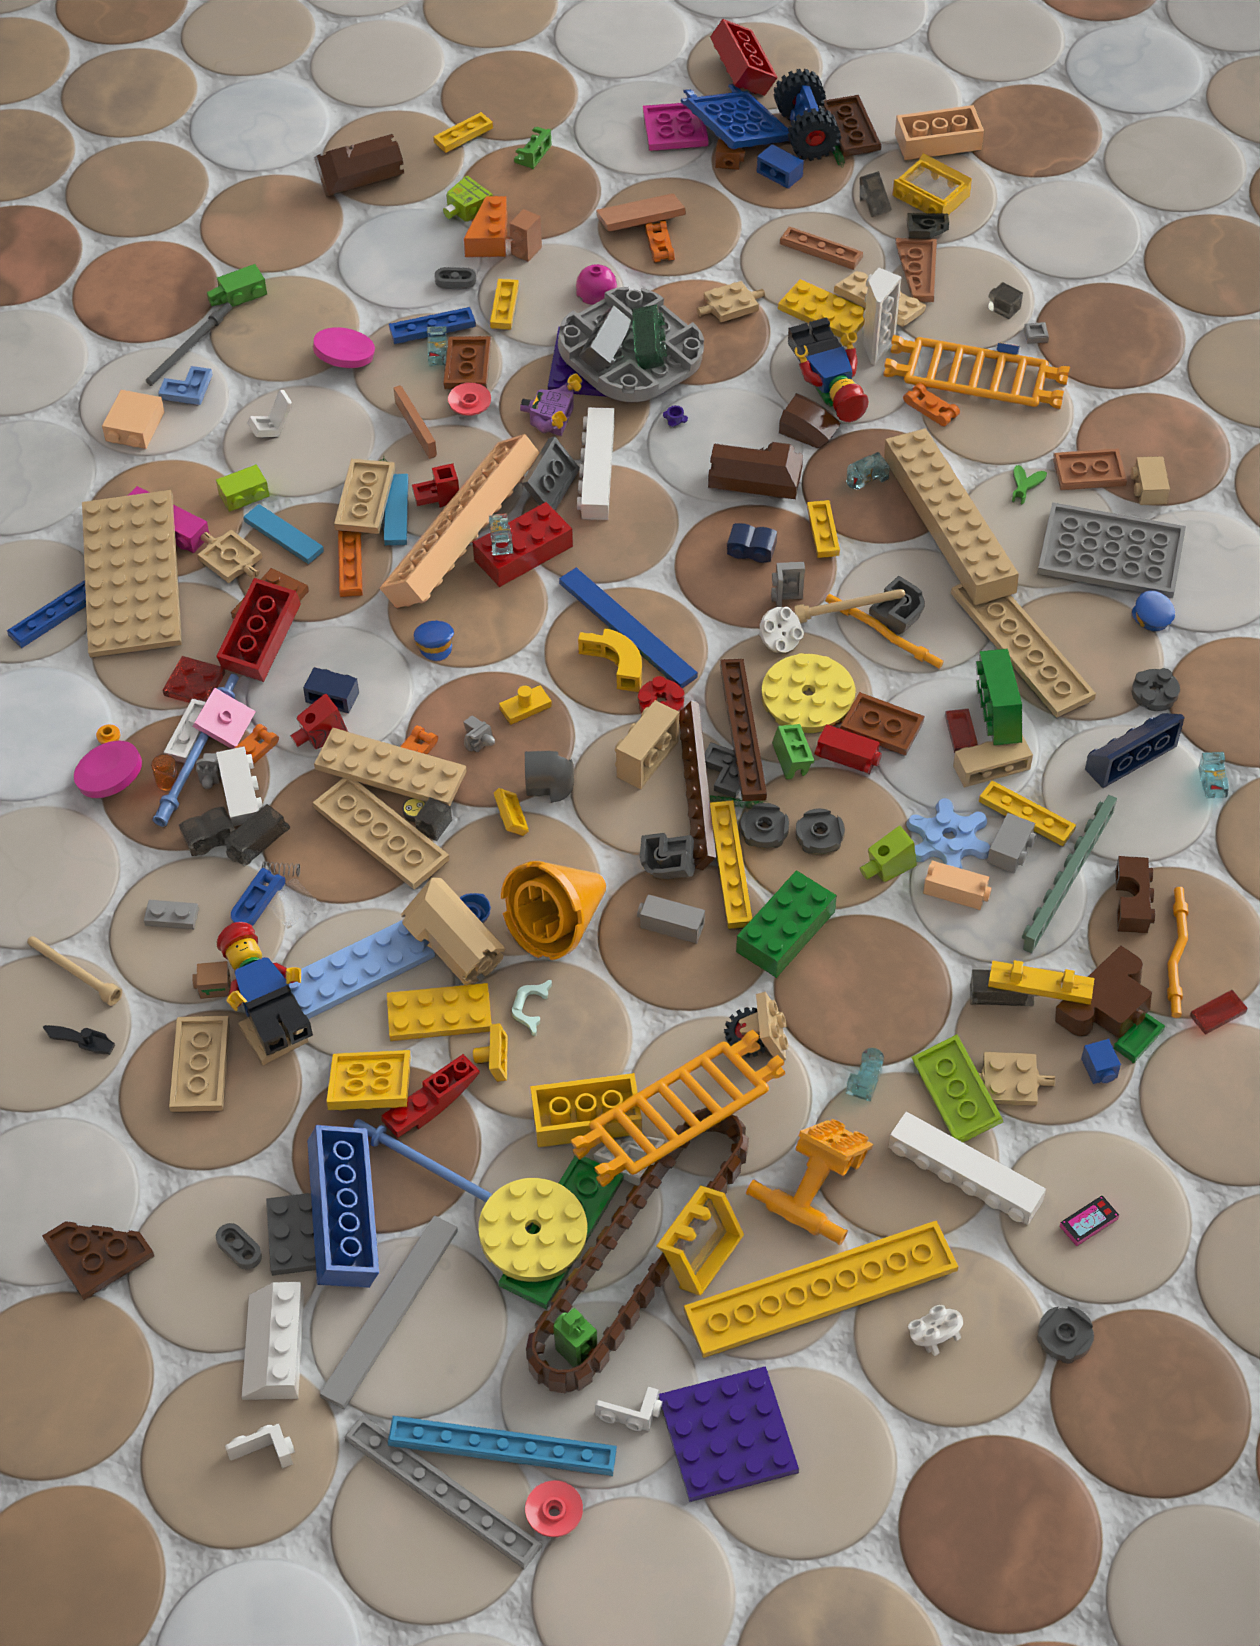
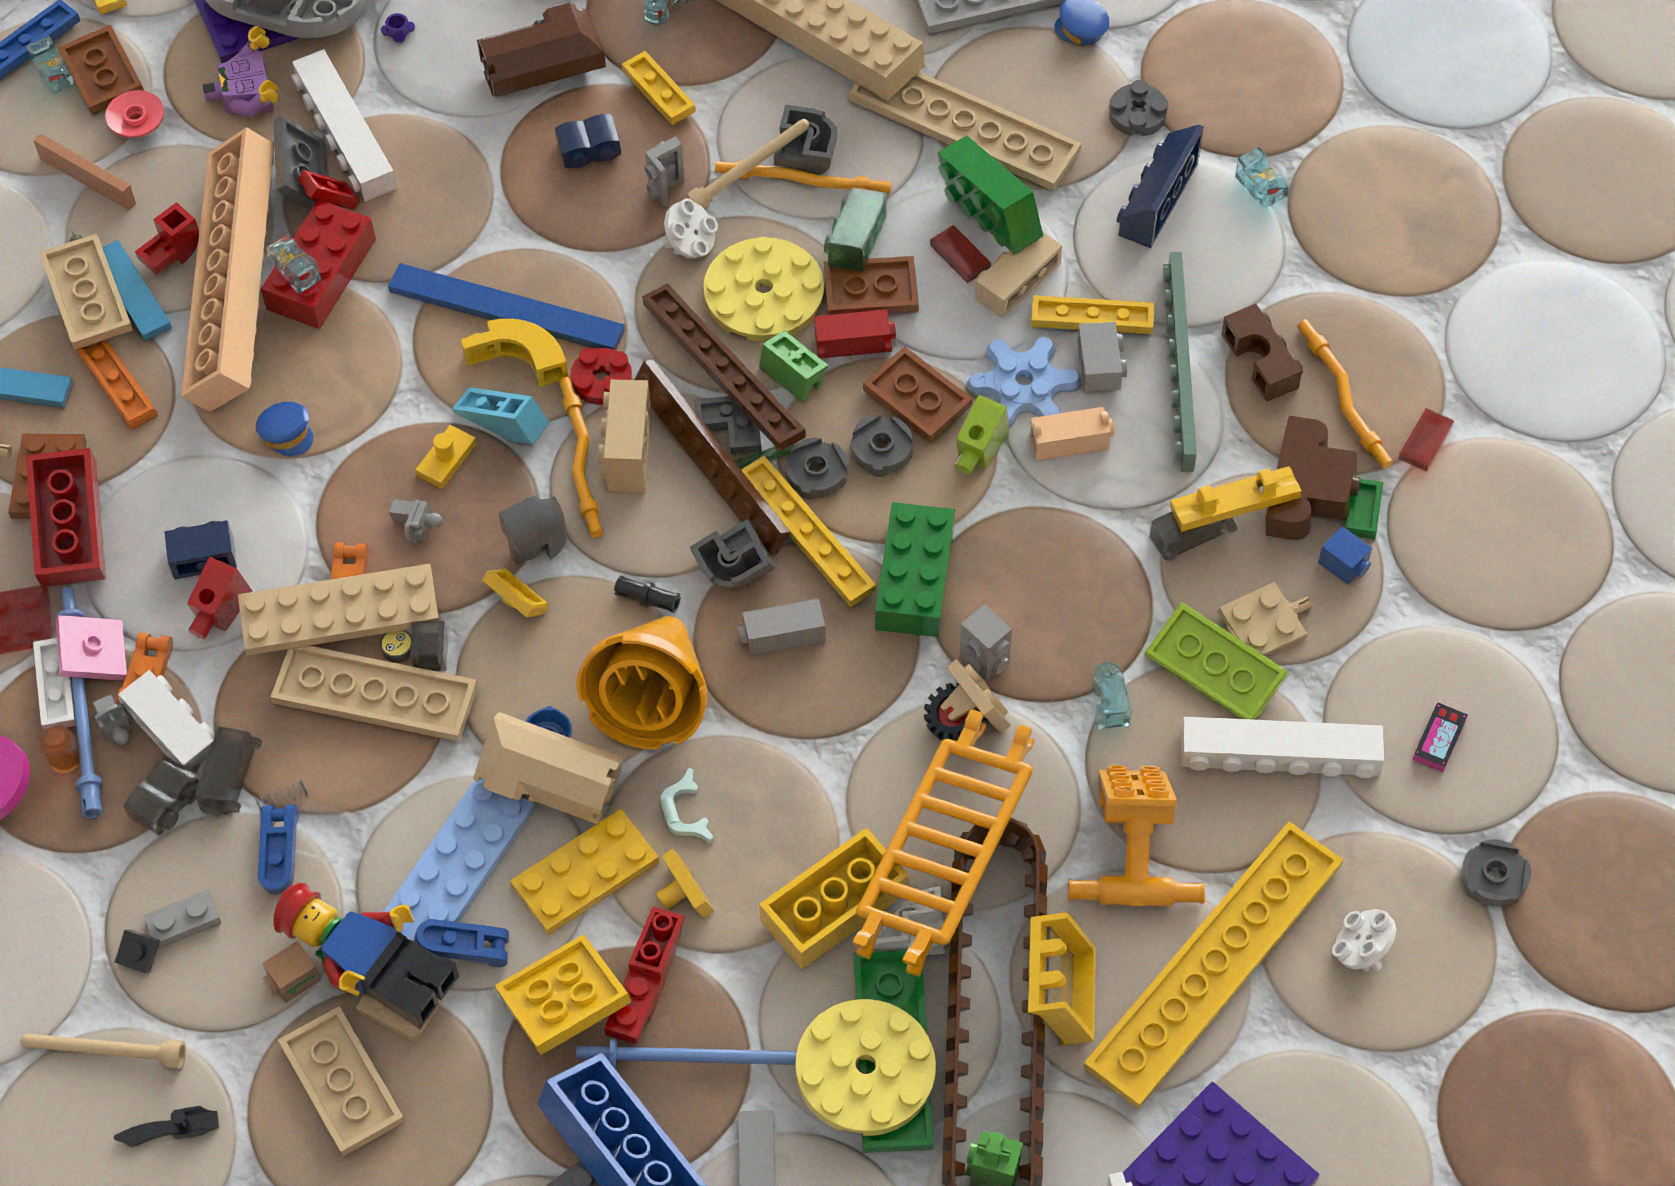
camera: 30 degrees left, 5 degrees up
(130, 919) = (137, 951): none -> black plate
(330, 1015) = (464, 941): none -> blue plate
(558, 499) = (328, 189): none -> red plate
(579, 694) = (503, 413): none -> medium azure slope
(596, 778) = (588, 505): none -> light orange bar
(596, 854) = (647, 594): none -> black pin
(799, 994) = (985, 642): none -> light grey brick
(865, 808) = (917, 394): none -> dark orange plate
(895, 680) = (856, 229): none -> clear green brick

